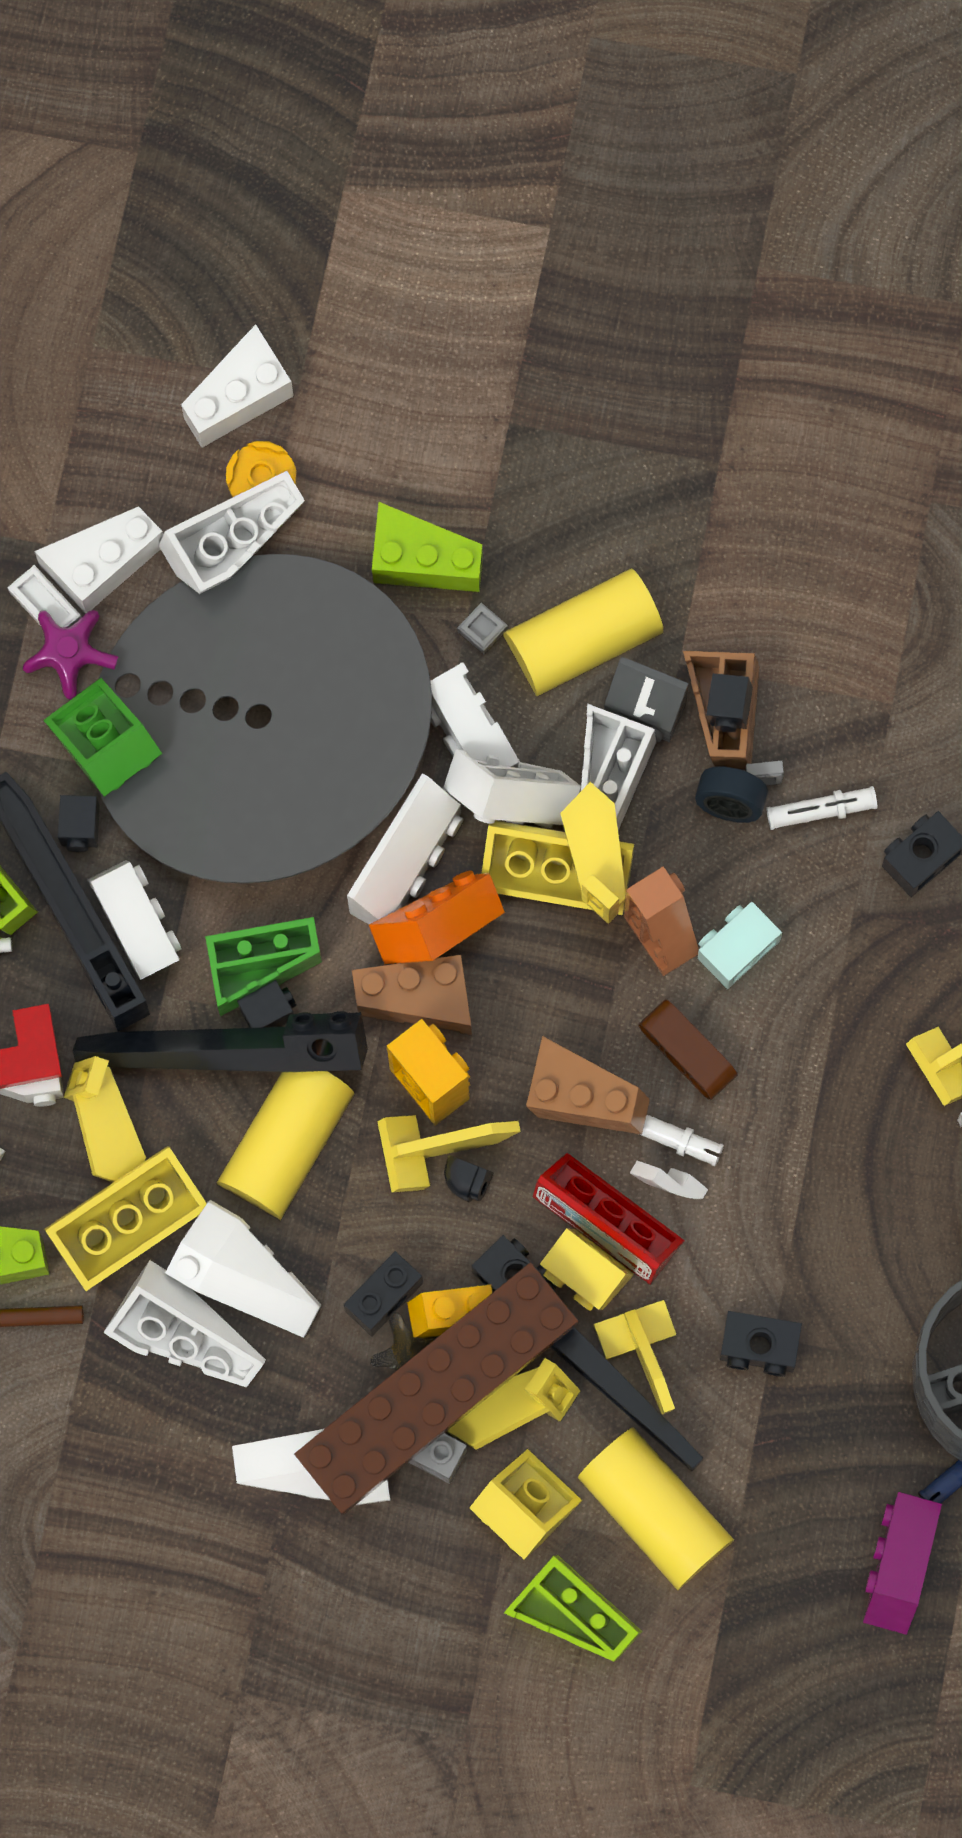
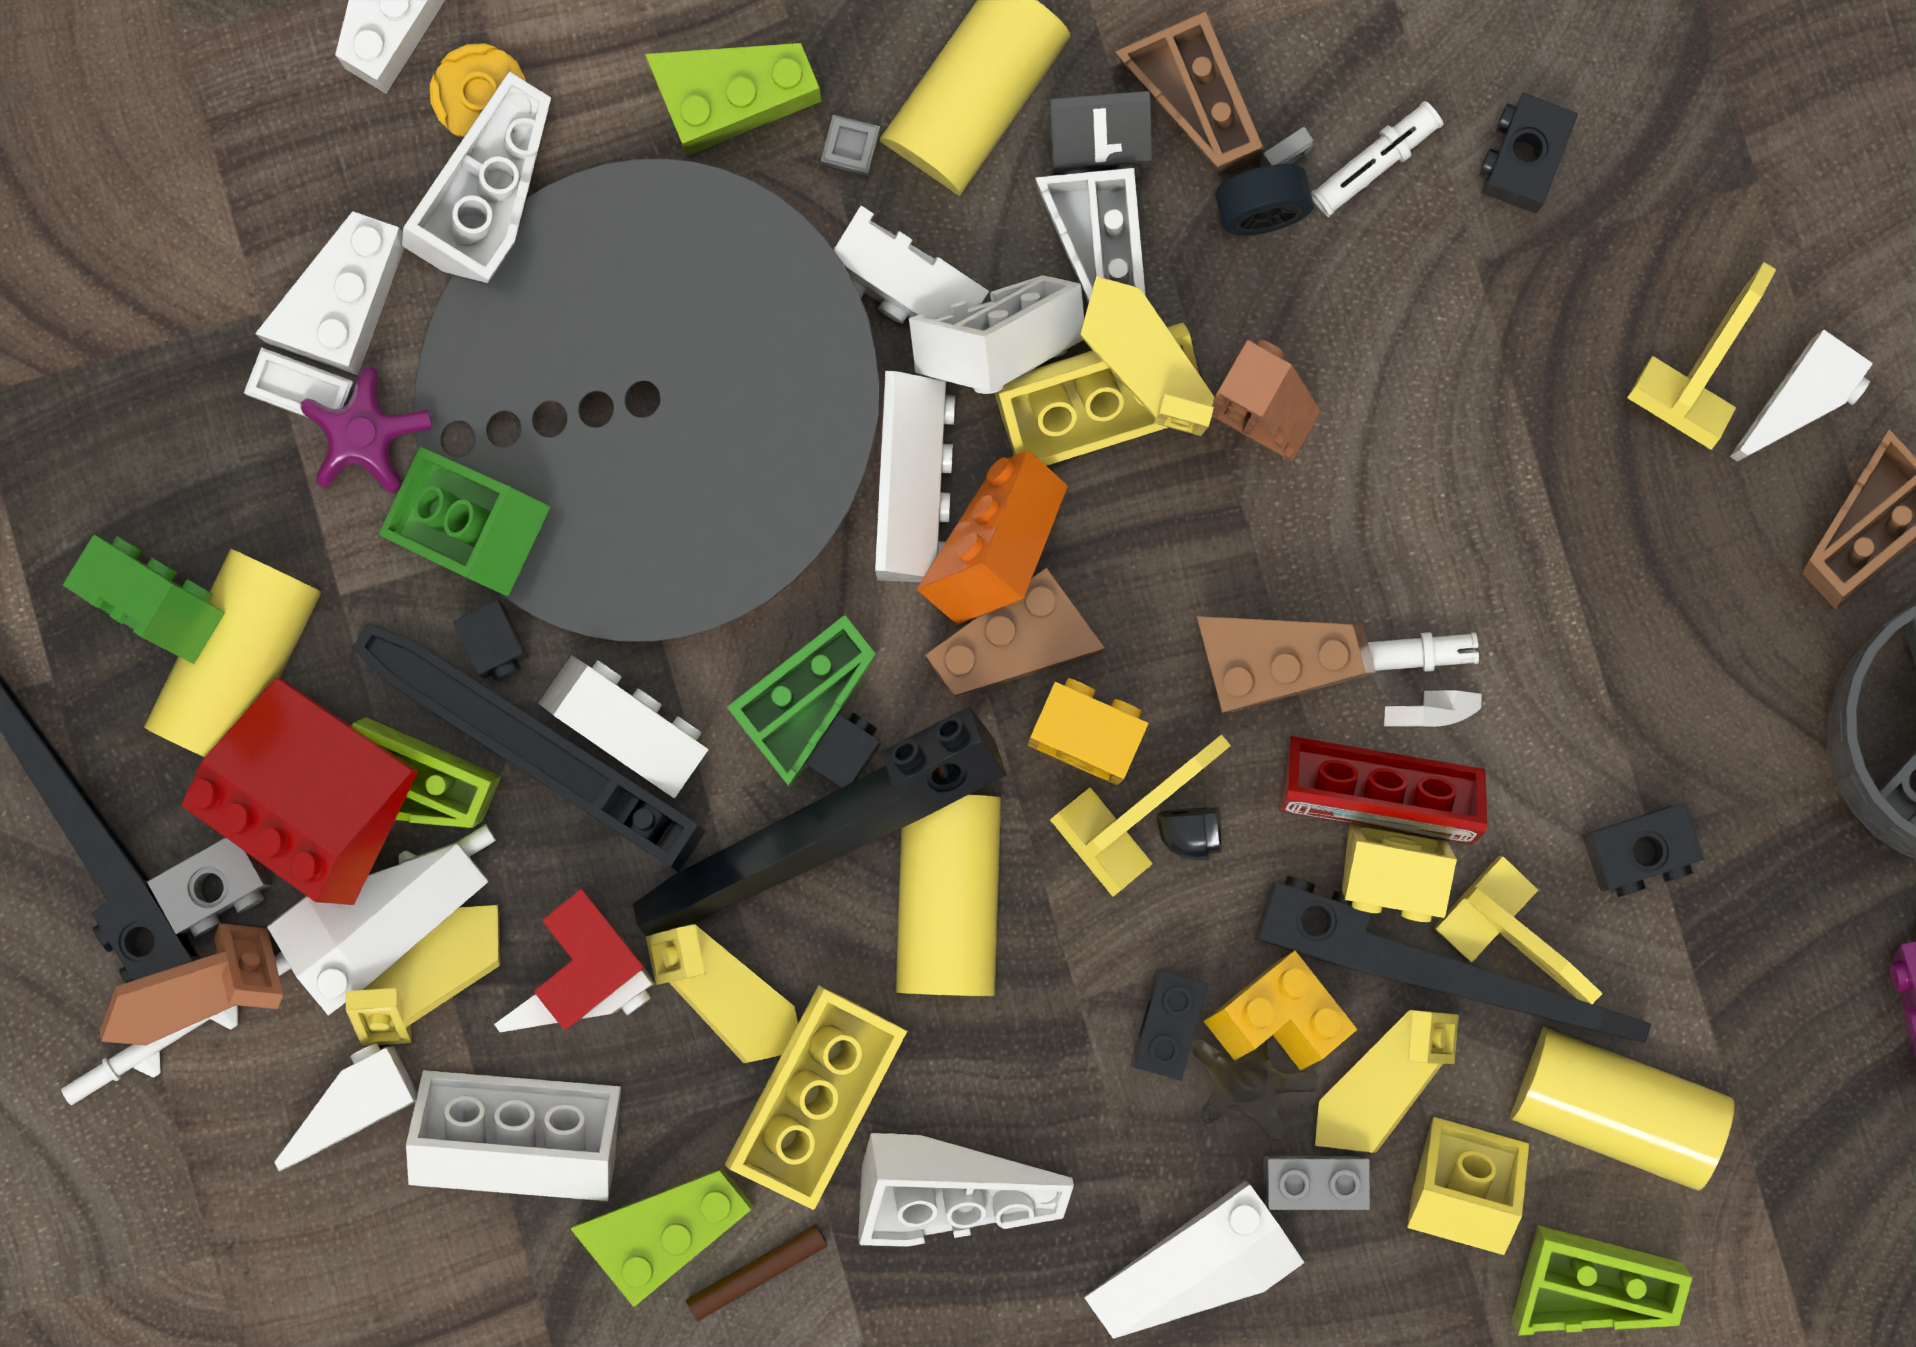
camera: 30 degrees left, 10 degrees up
(233, 1267) = (981, 1090): white wedge -> none
(436, 1388) = (1306, 1120): reddish brown brick -> none
(688, 1049) = (1372, 538): reddish brown beam -> none
(729, 702) = (1211, 89): black brick -> none
(738, 944) = (1366, 378): light aqua brick -> none

